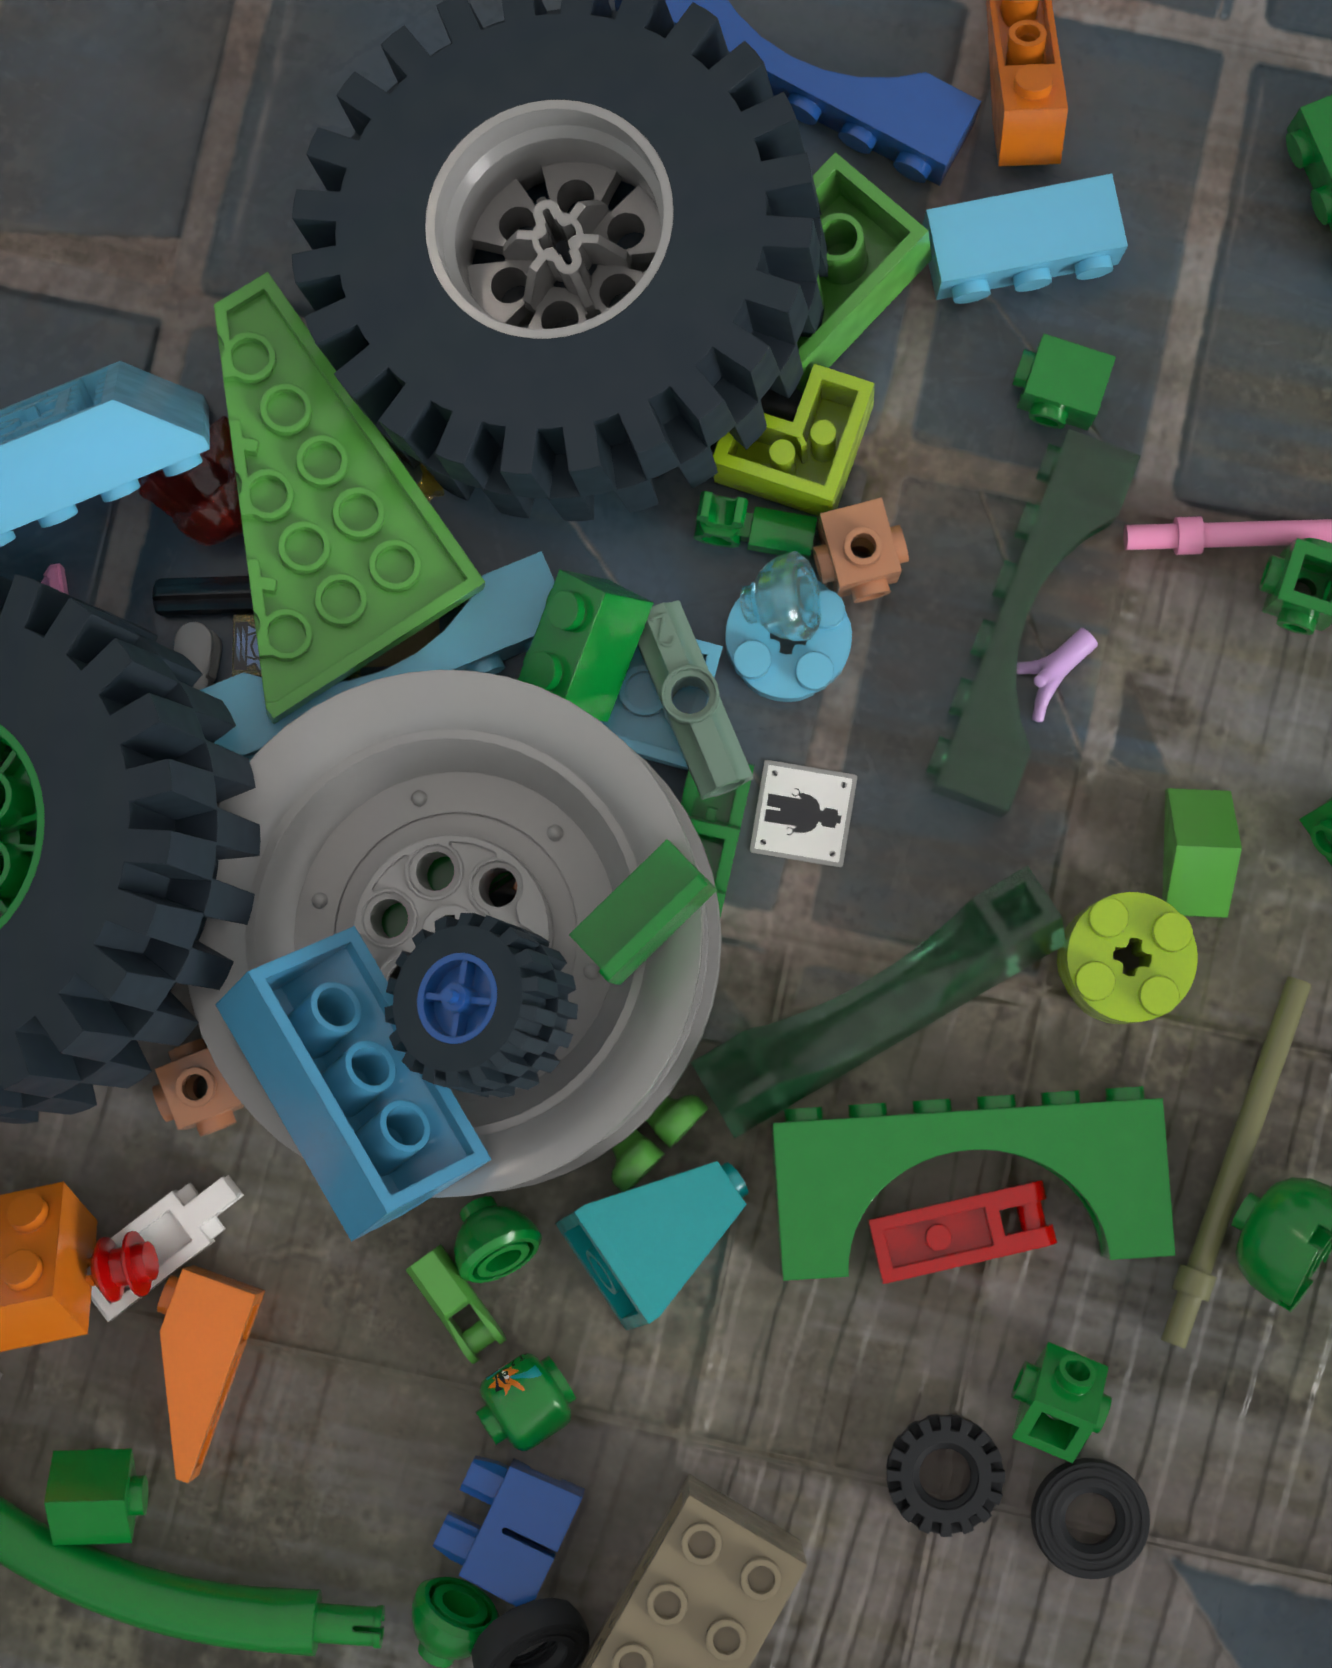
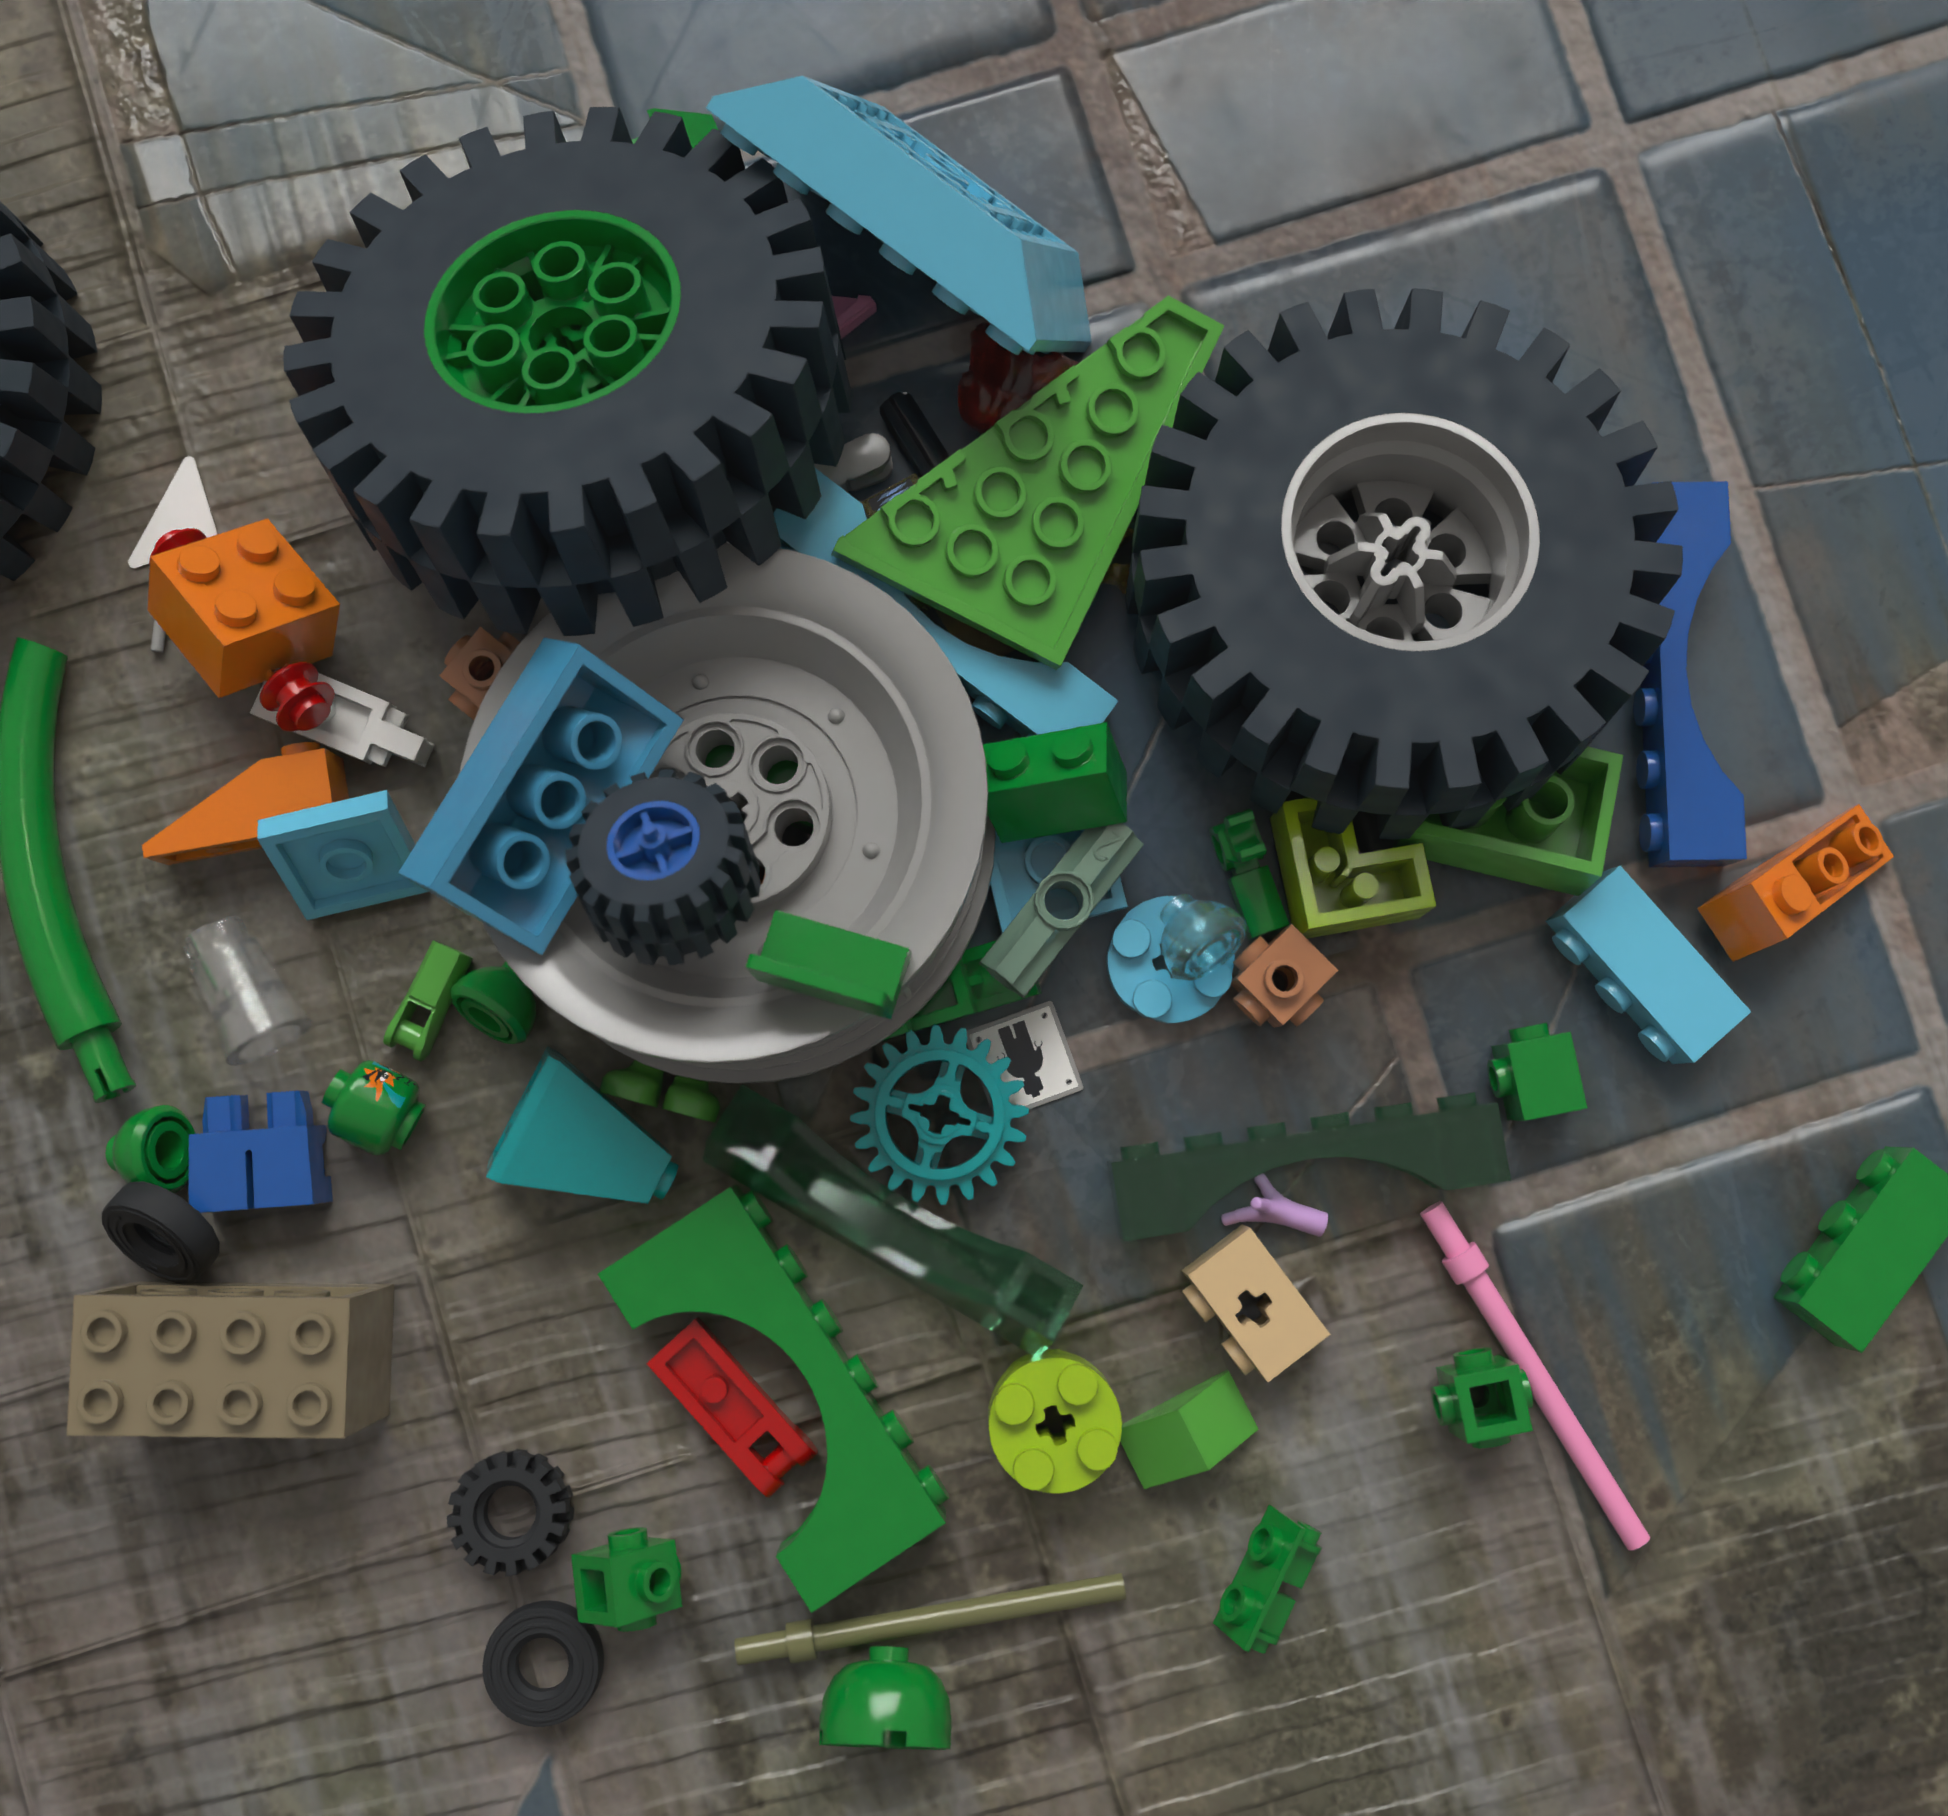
camera: 55 degrees right, 0 degrees up
(94, 1496) = (93, 785): green brick -> none
(288, 1302) = (340, 854): none -> medium azure plate
(356, 1462) = (243, 992): none -> clear plant
(850, 870) = (885, 1099): none -> teal gear
(1153, 713) = (1286, 1321): none -> tan brick

